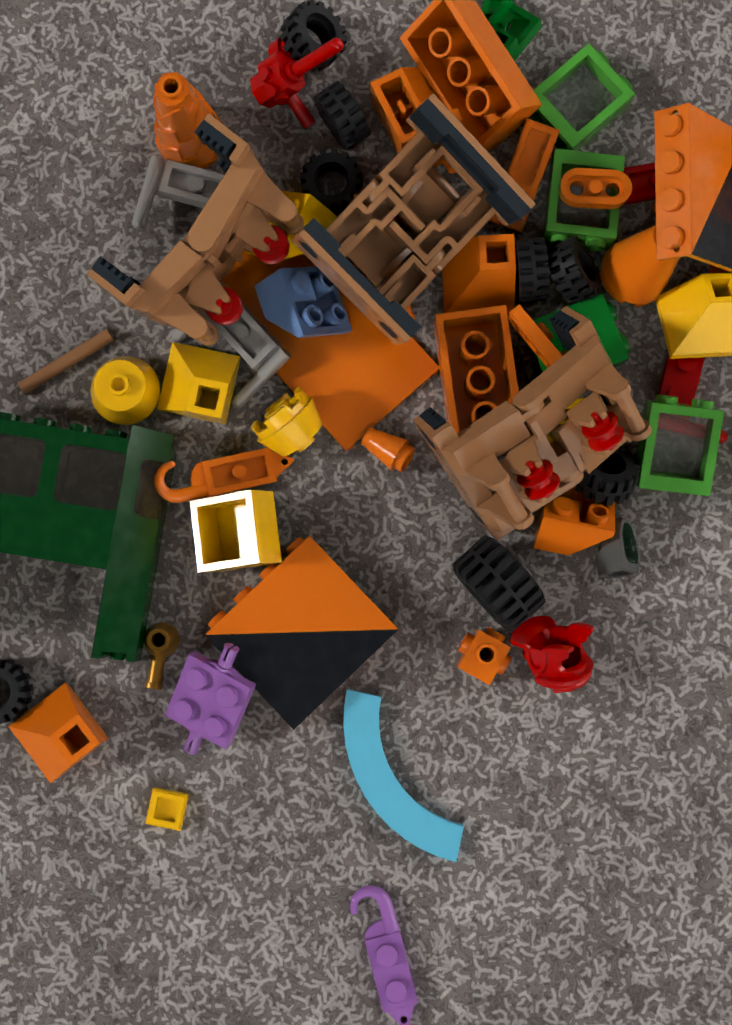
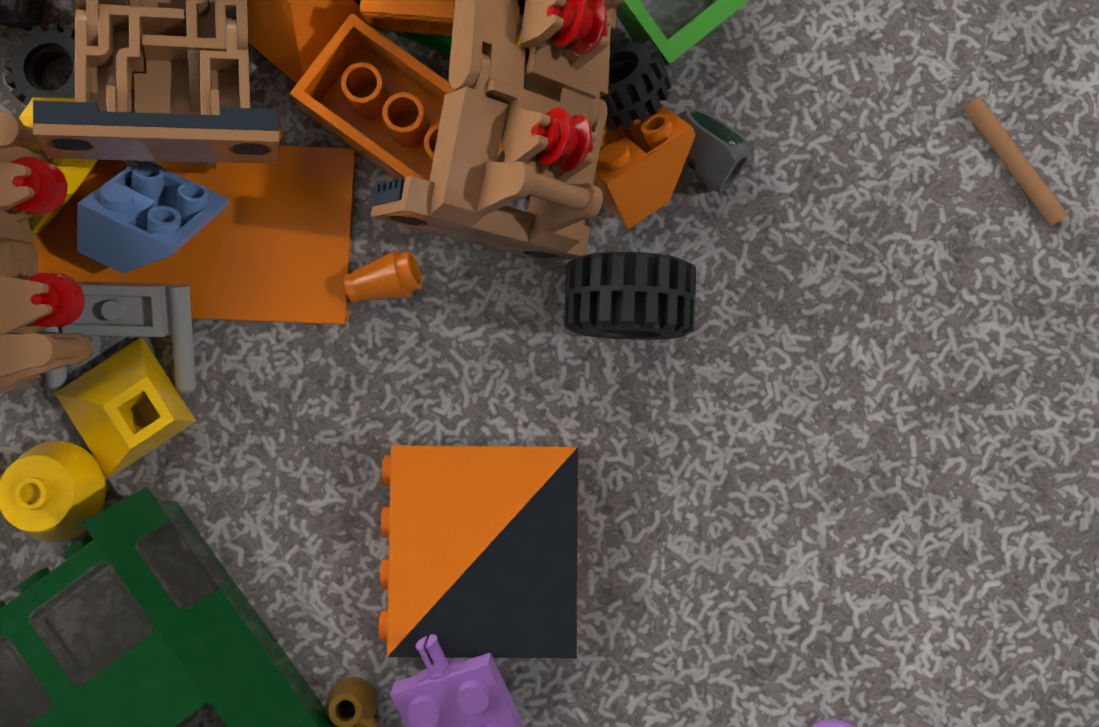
camera: 50 degrees left, 0 degrees up
(224, 475) = (241, 474): orange plate -> none
(235, 531) = (309, 518): yellow piece -> none
(289, 424) = (256, 354): yellow cone -> none
(384, 790) = (721, 619): medium azure tile -> none
(470, 659) = (706, 378): orange brick -> none
(555, 652) = (755, 309): red helmet -> none

